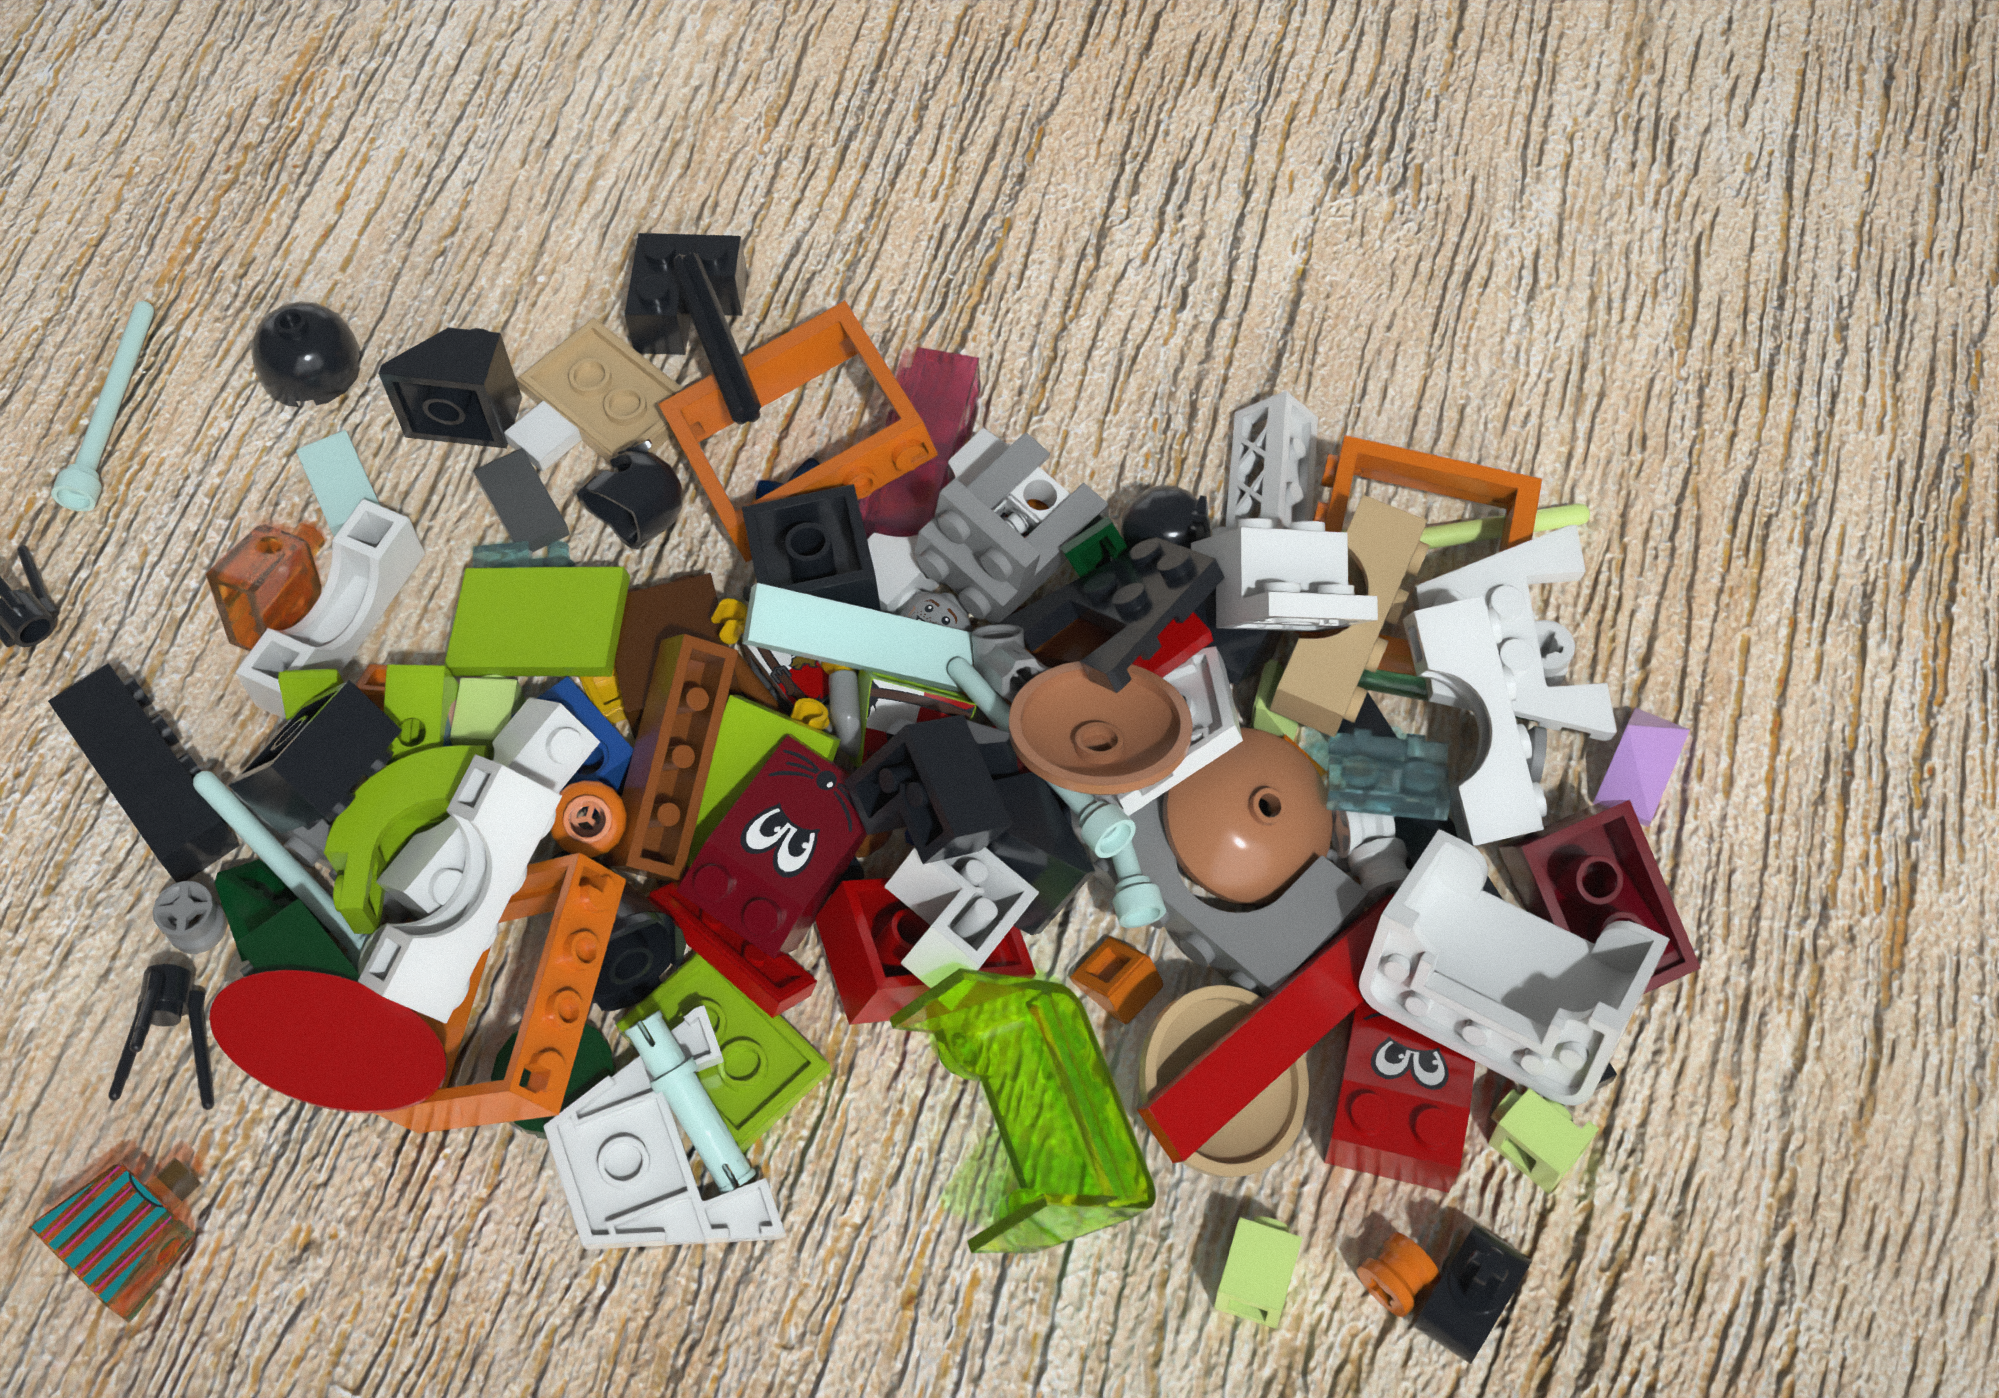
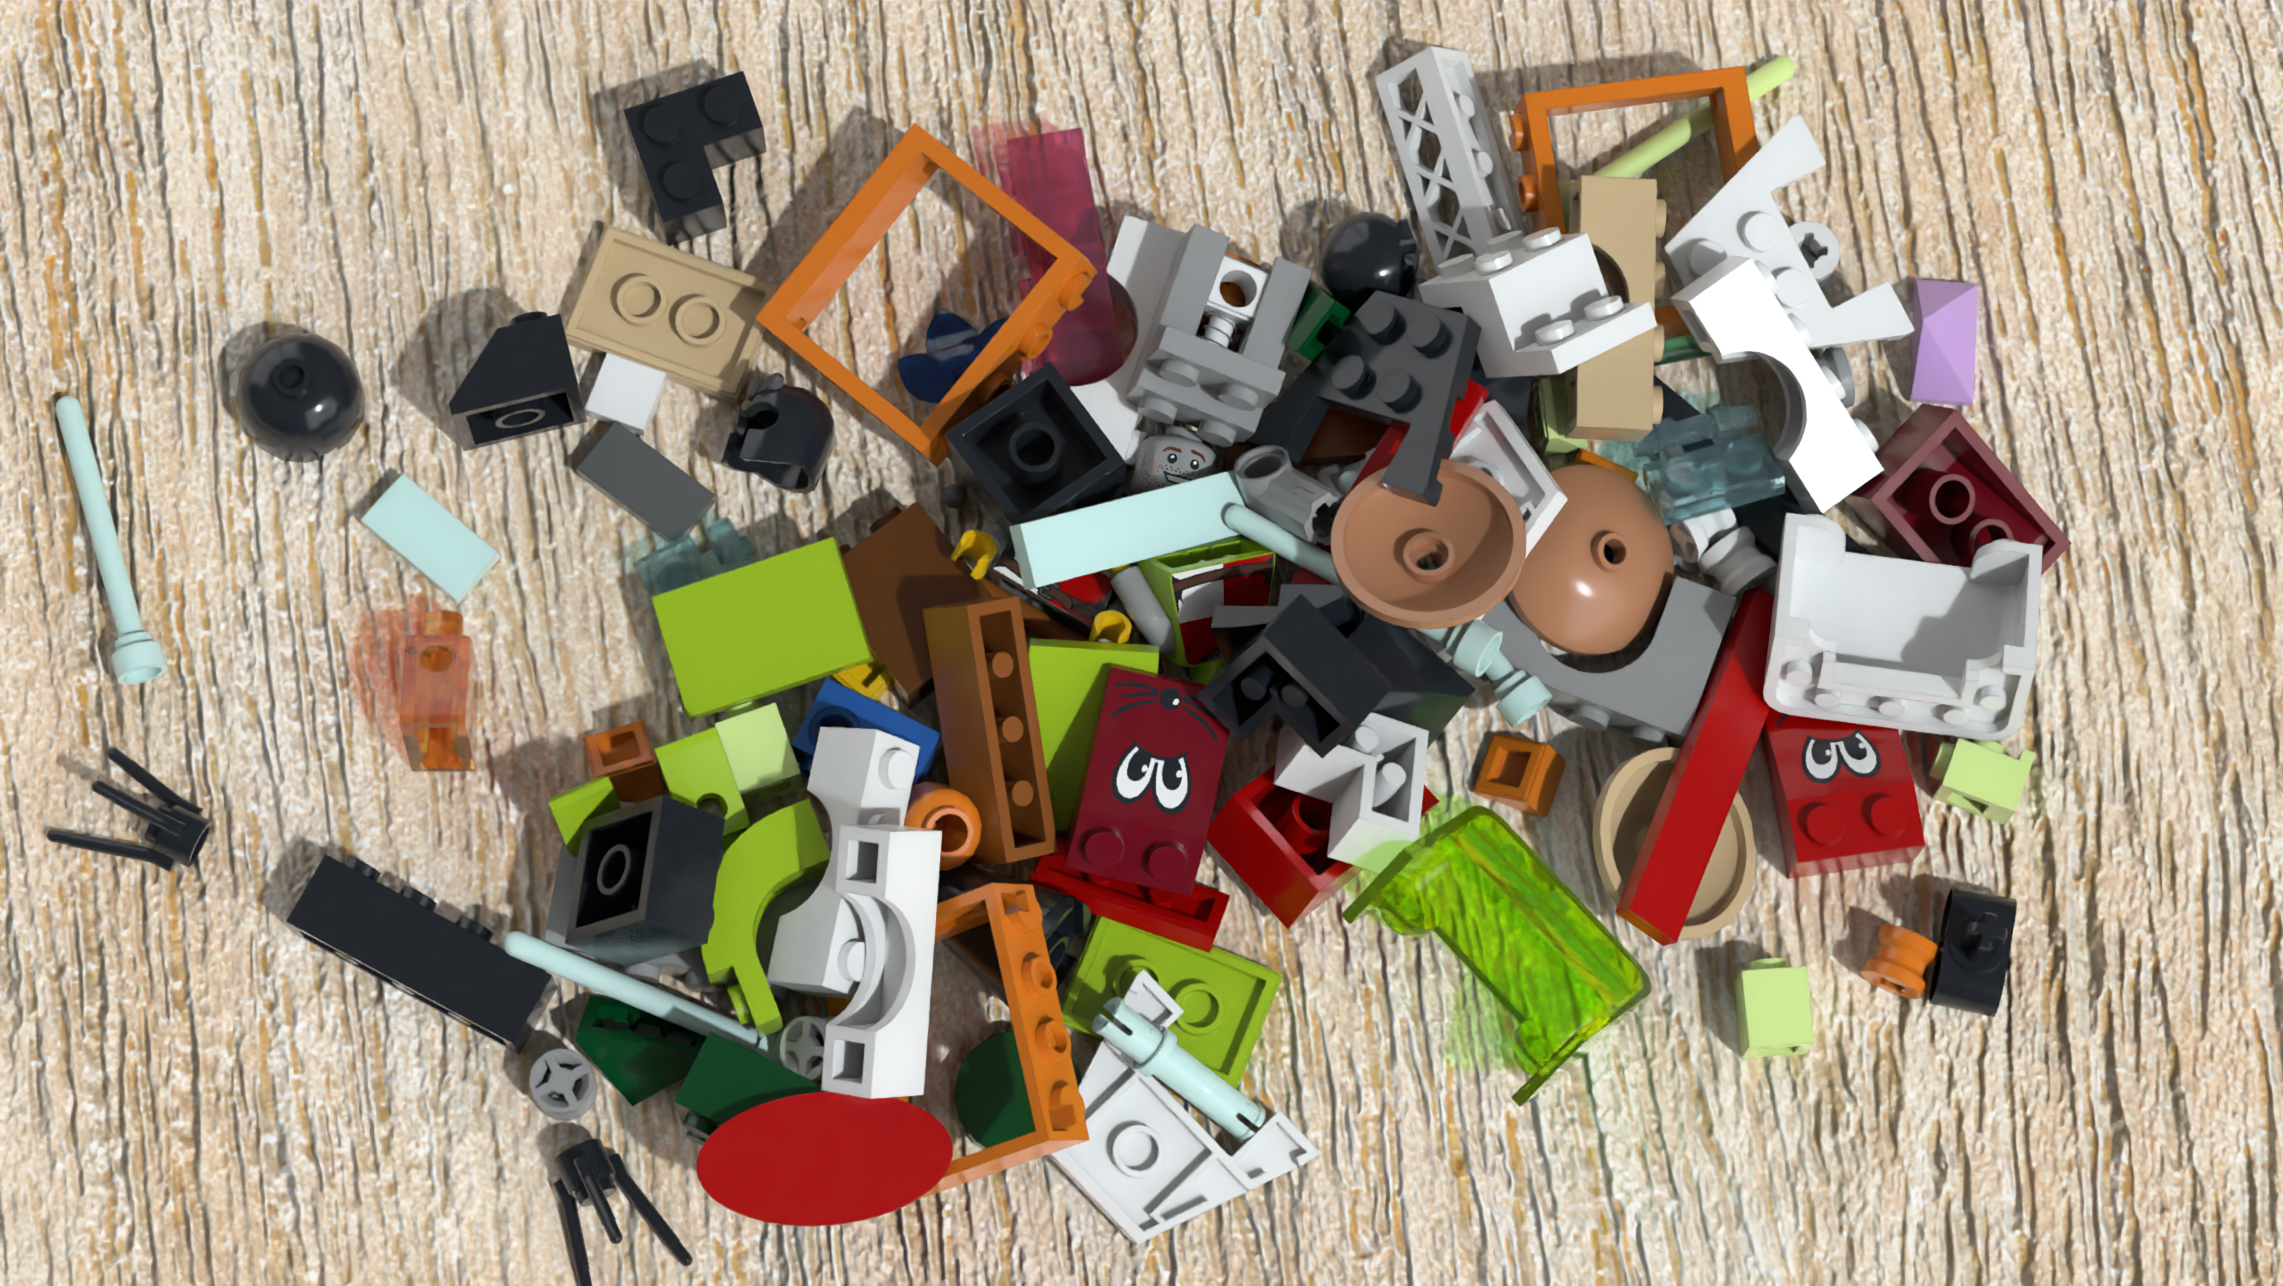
camera: 30 degrees left, 15 degrees up
(368, 568) = (530, 699): white arch -> none
(716, 338) = (793, 222): black axle -> none

